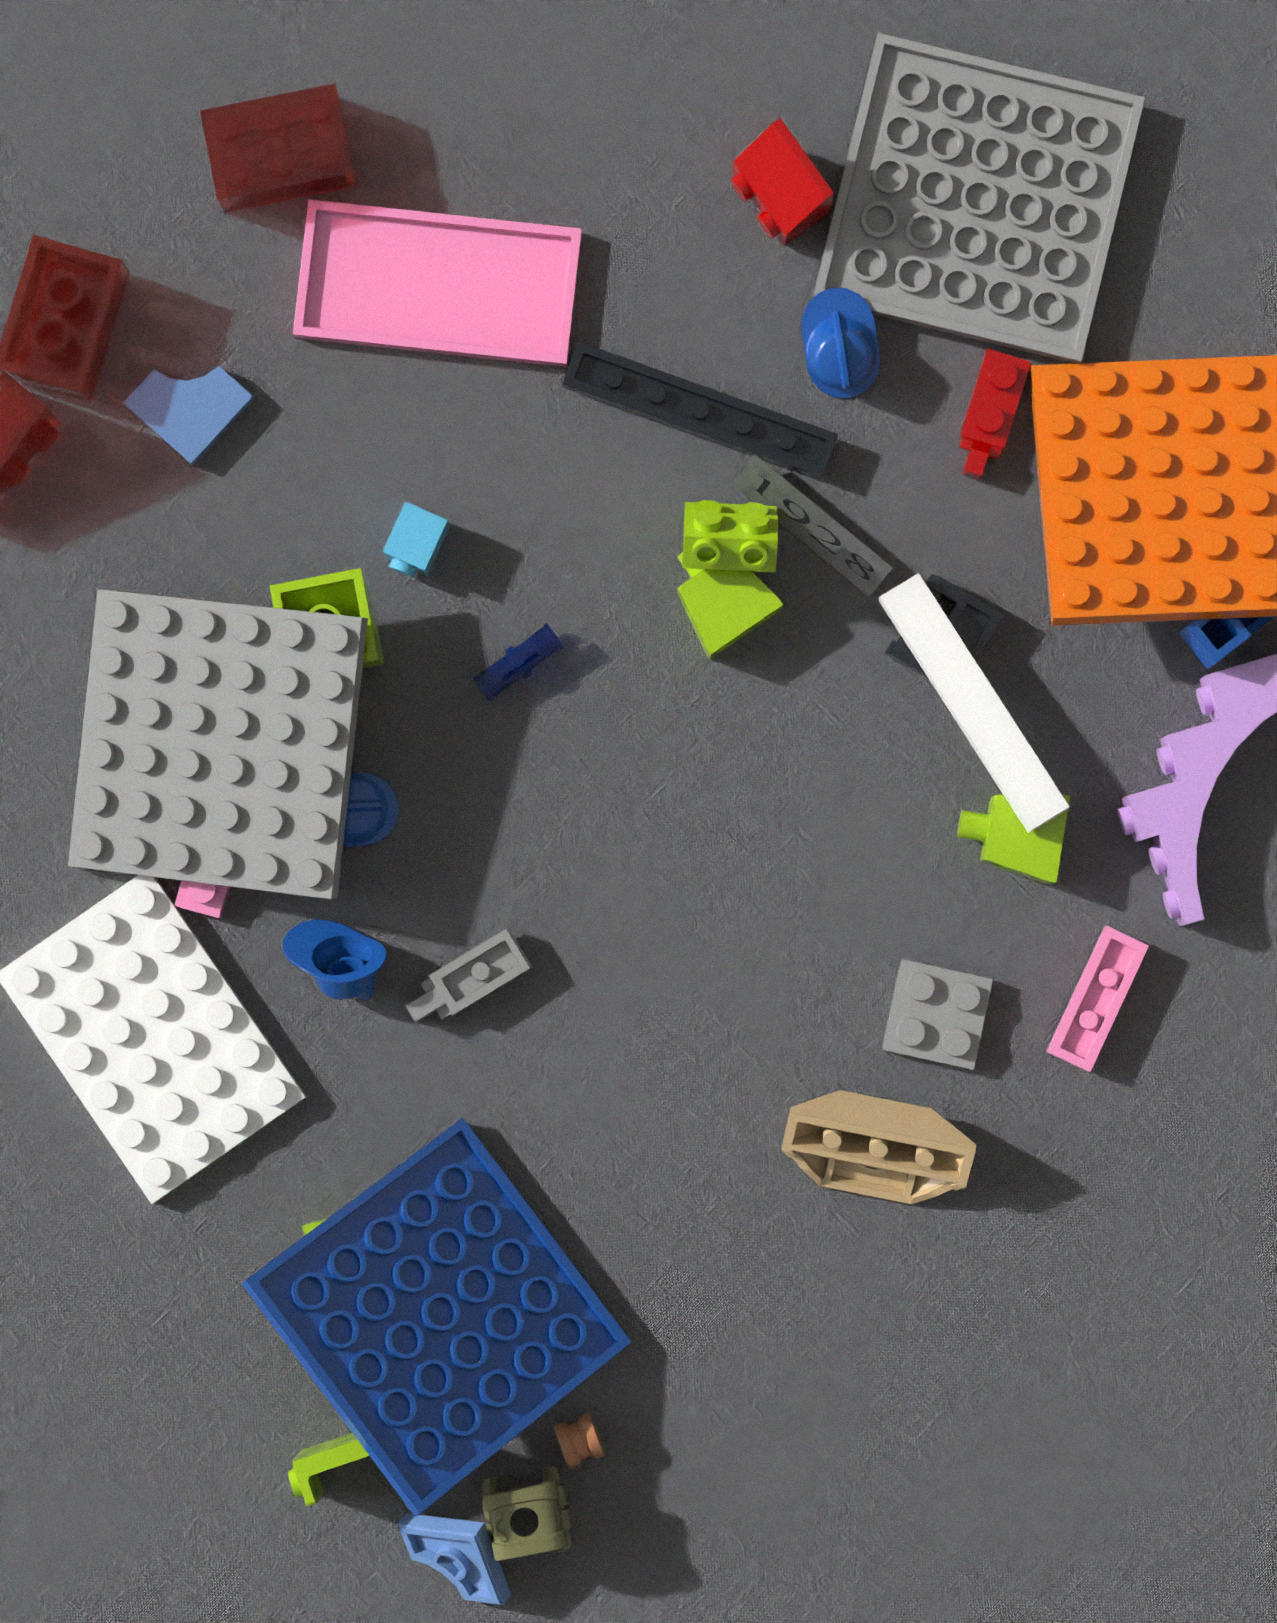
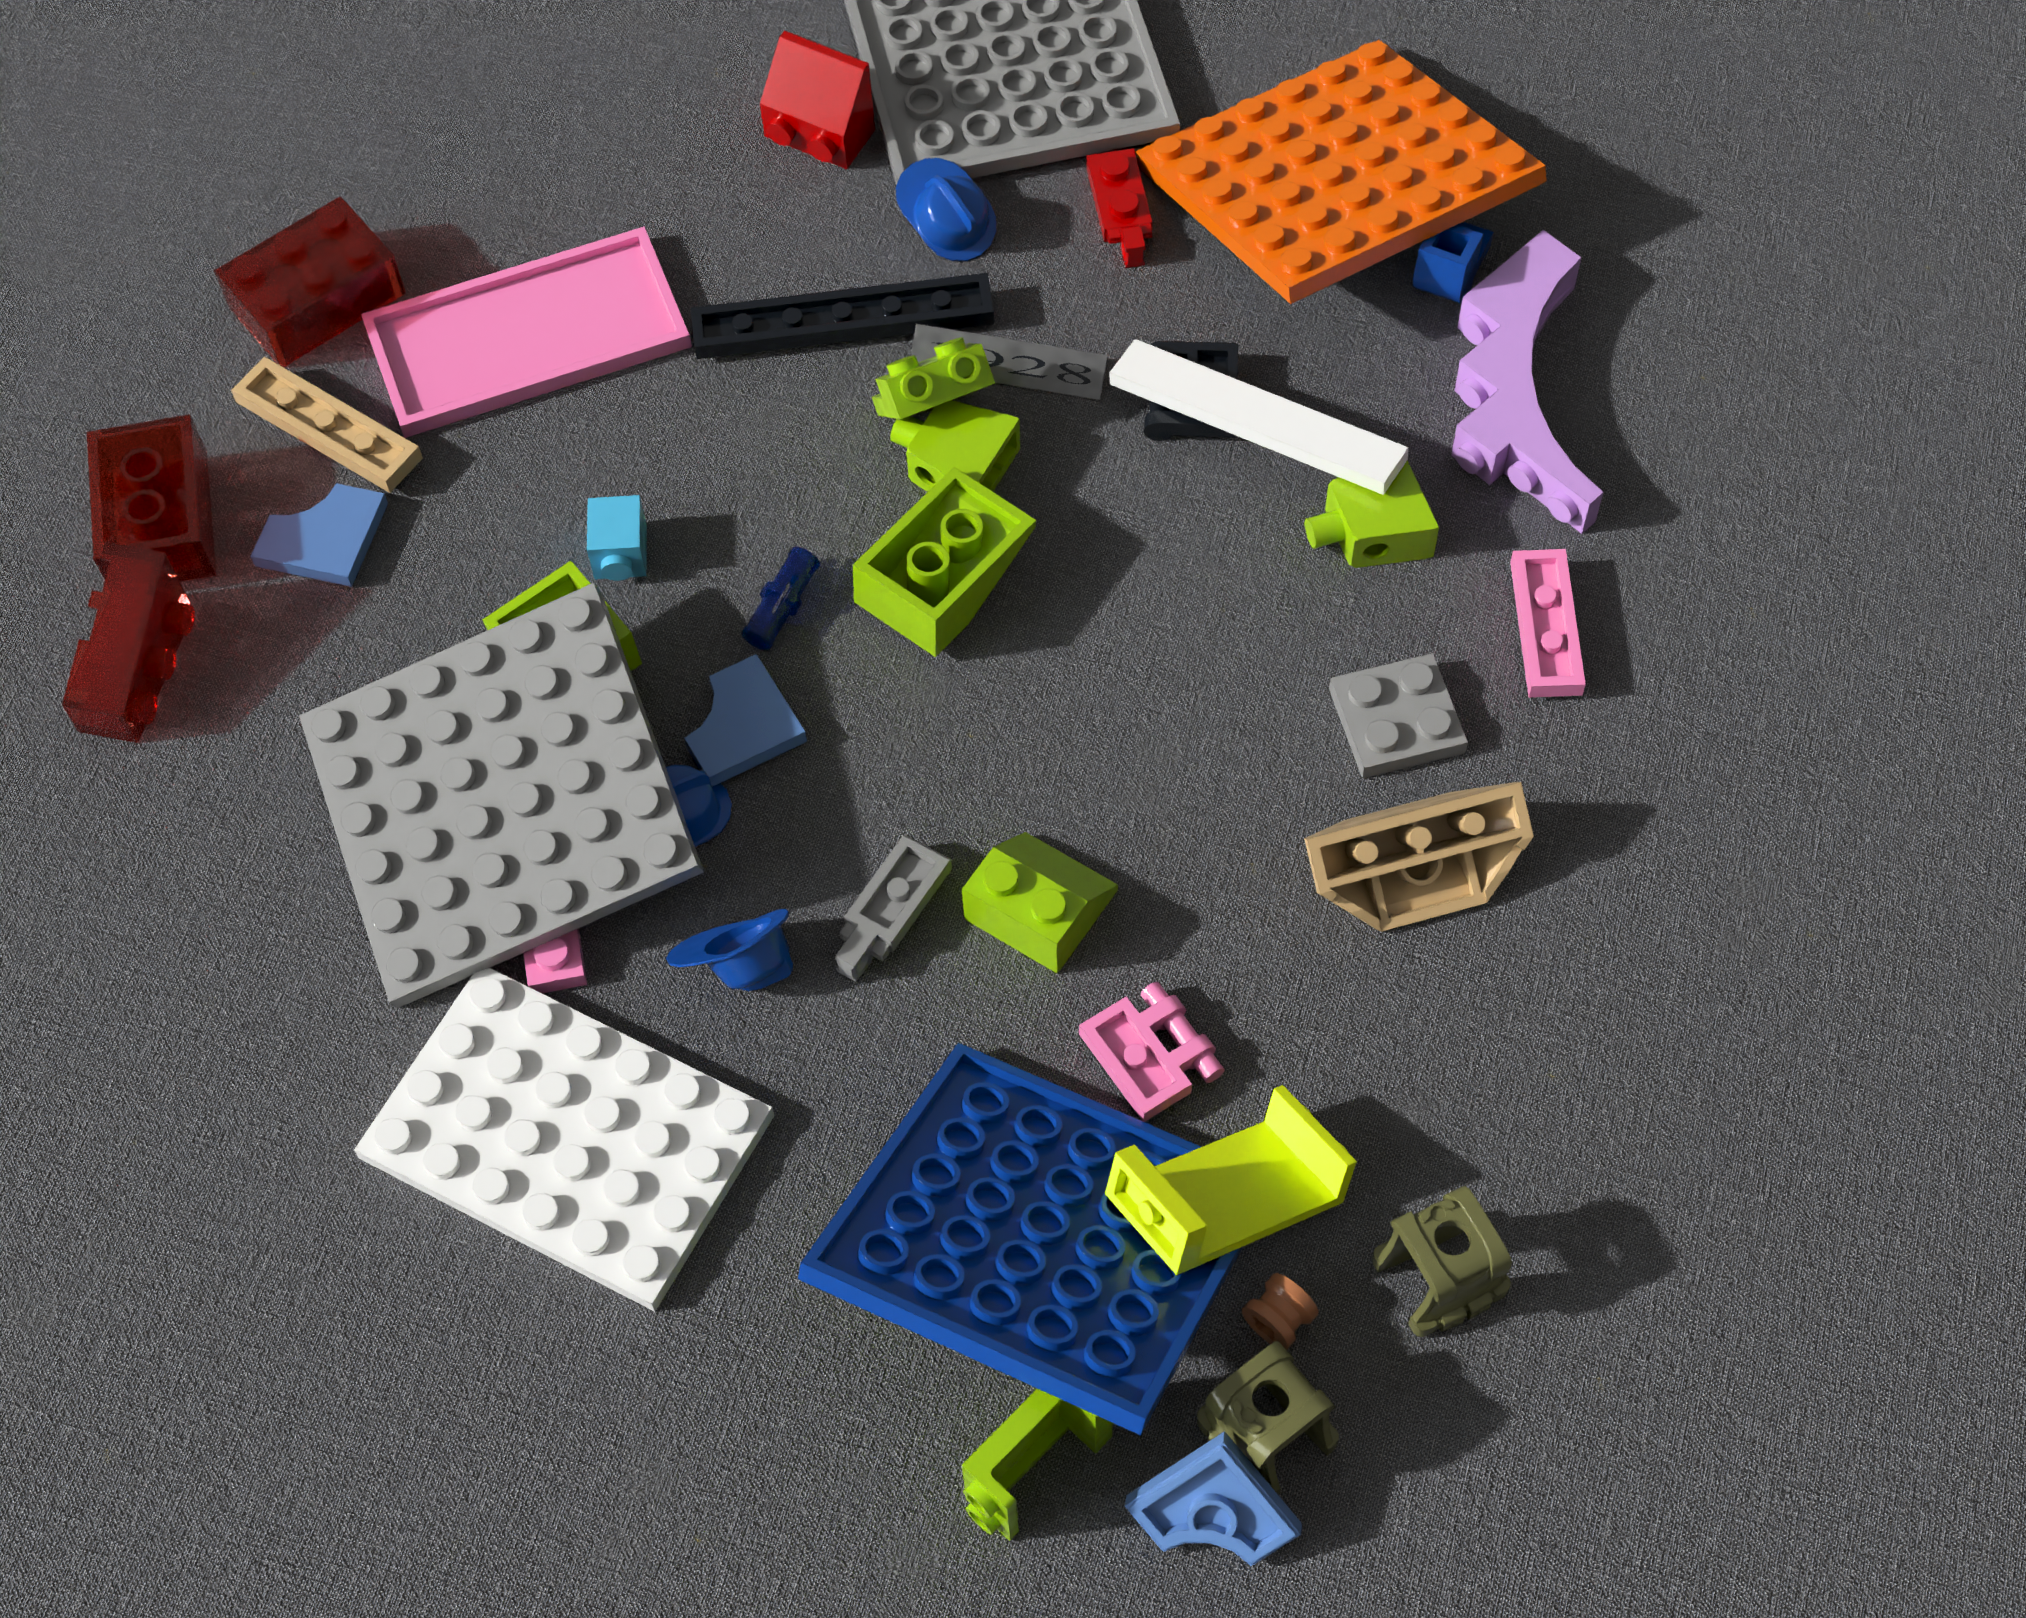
camera: 25 degrees left, 25 degrees down
(234, 300) = (327, 424): none -> tan plate
(440, 760) = (746, 723): none -> medium blue tile
(584, 1028) = (1035, 899): none -> lime slope
(584, 1198) = (1139, 1061): none -> bright pink plate
(591, 1342) = (1233, 1187): none -> neon yellow panel
(658, 703) = (940, 560): none -> lime slope
(703, 1445) = (1458, 1283): none -> olive piece

